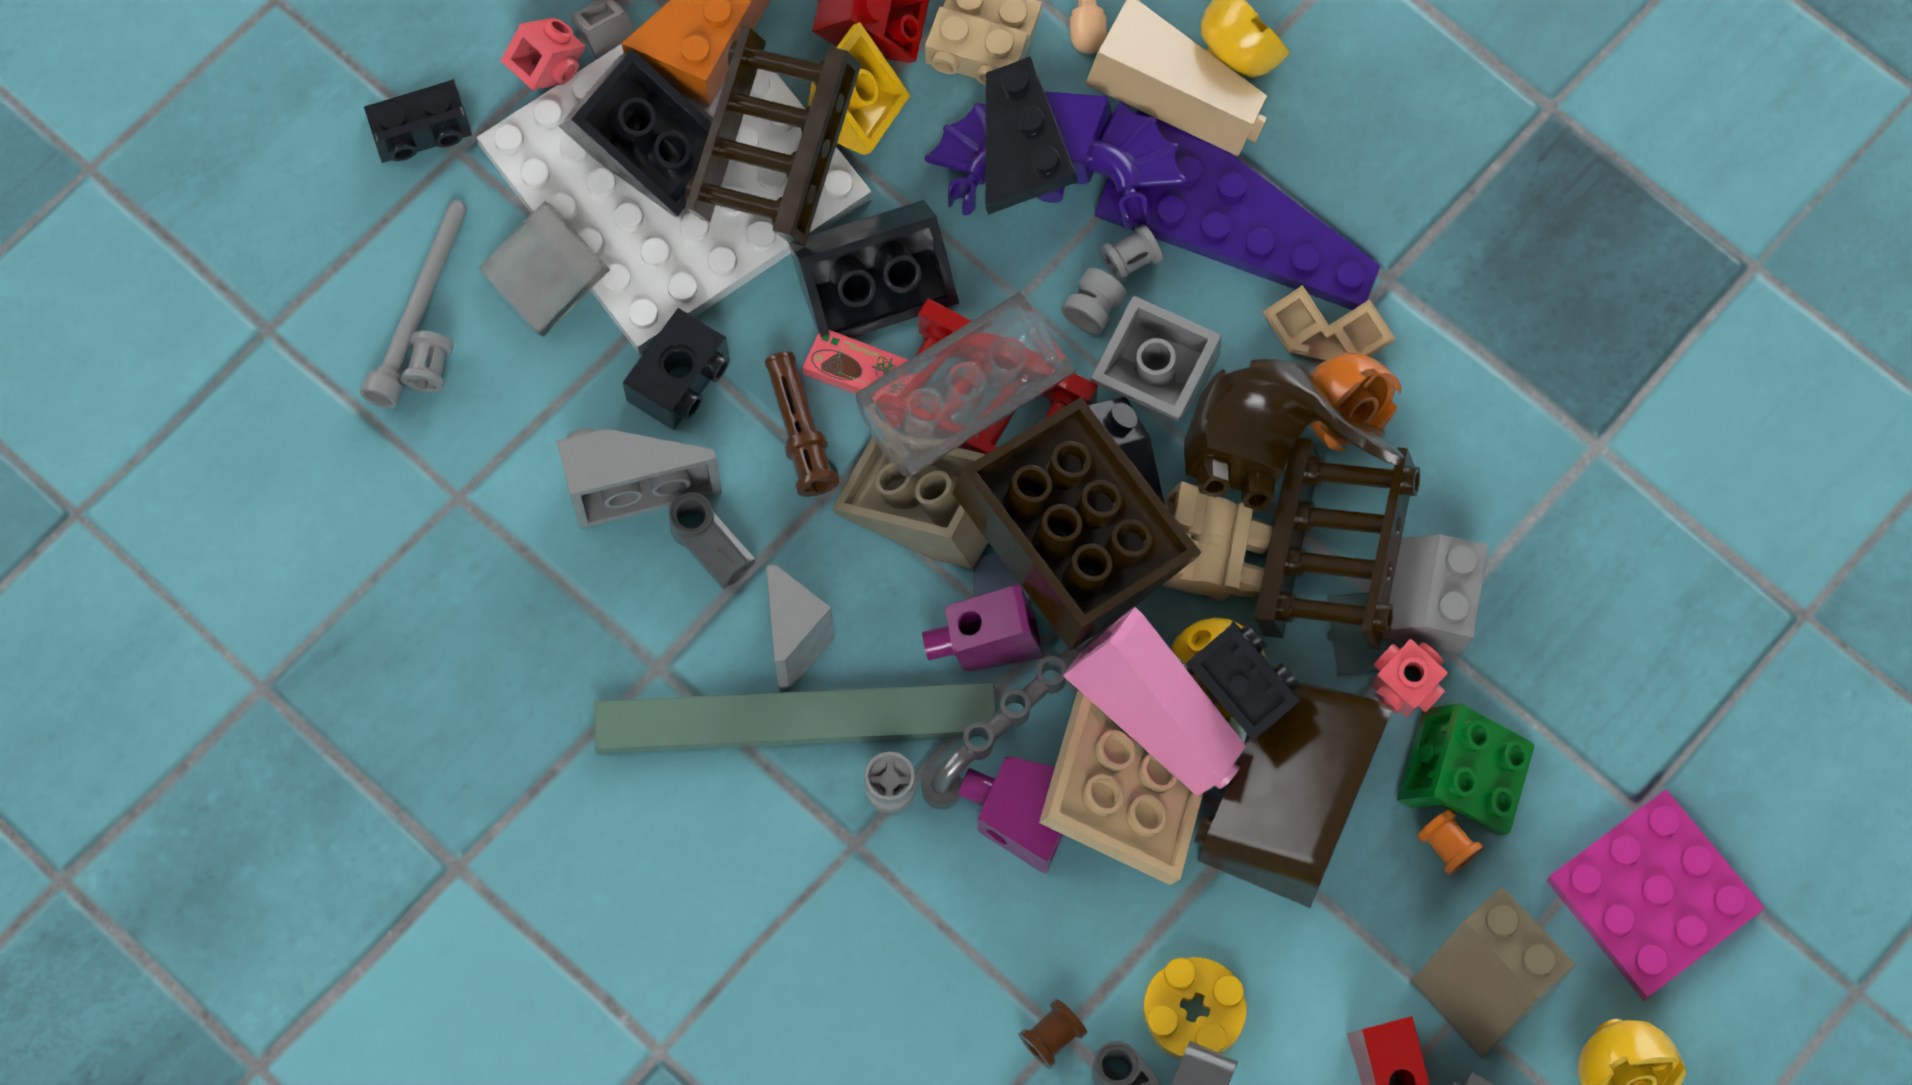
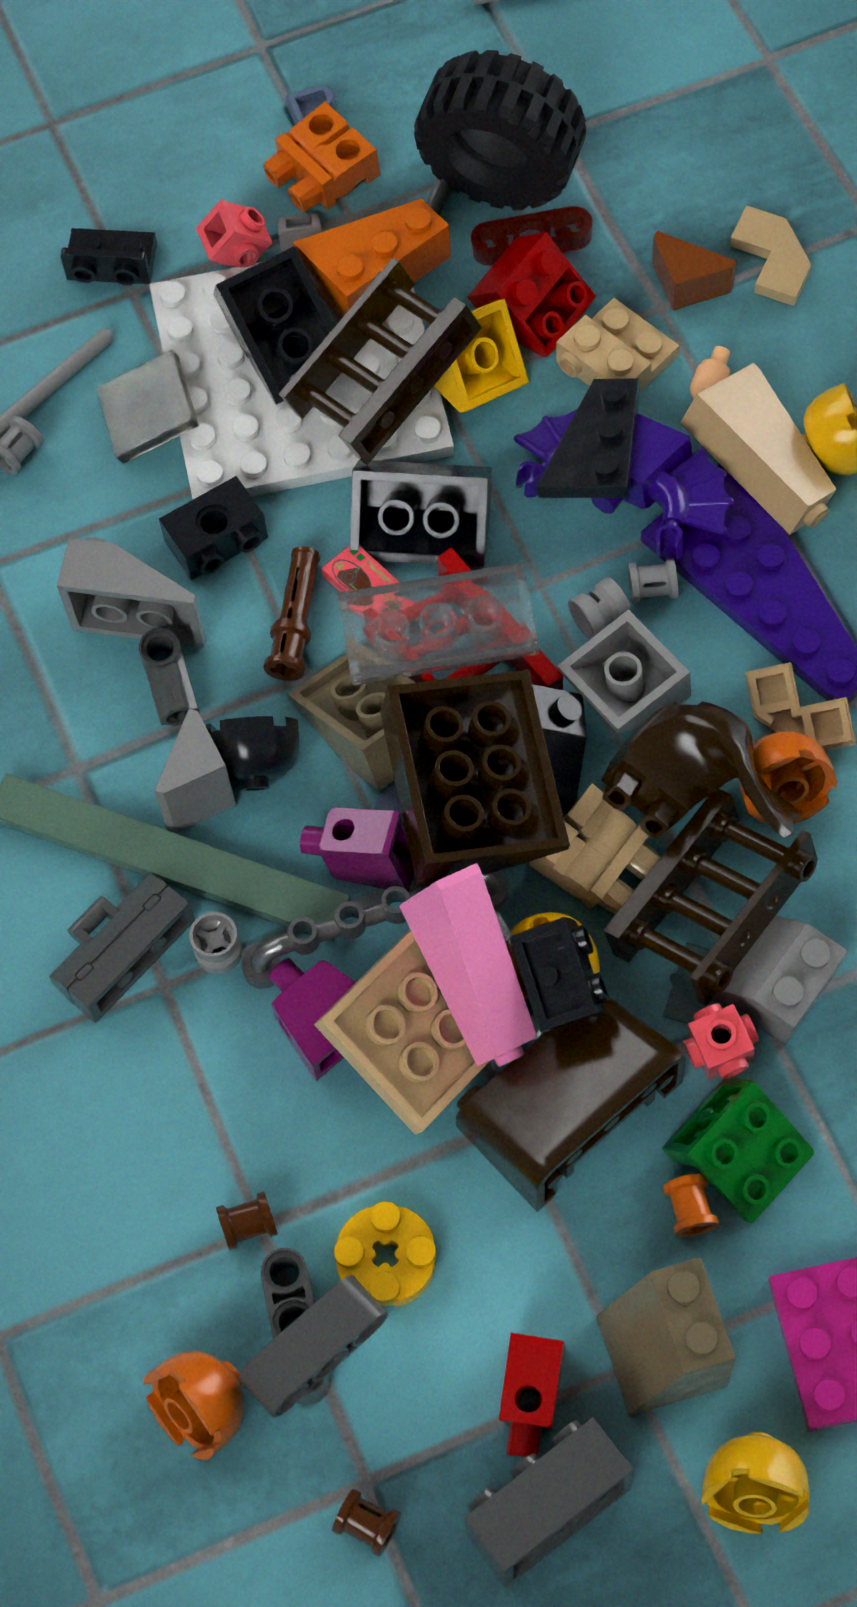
camera: 30 degrees right, 5 degrees down
(808, 809) = (124, 948): none -> dark grey piece
(842, 576) = (256, 749): none -> black cylinder

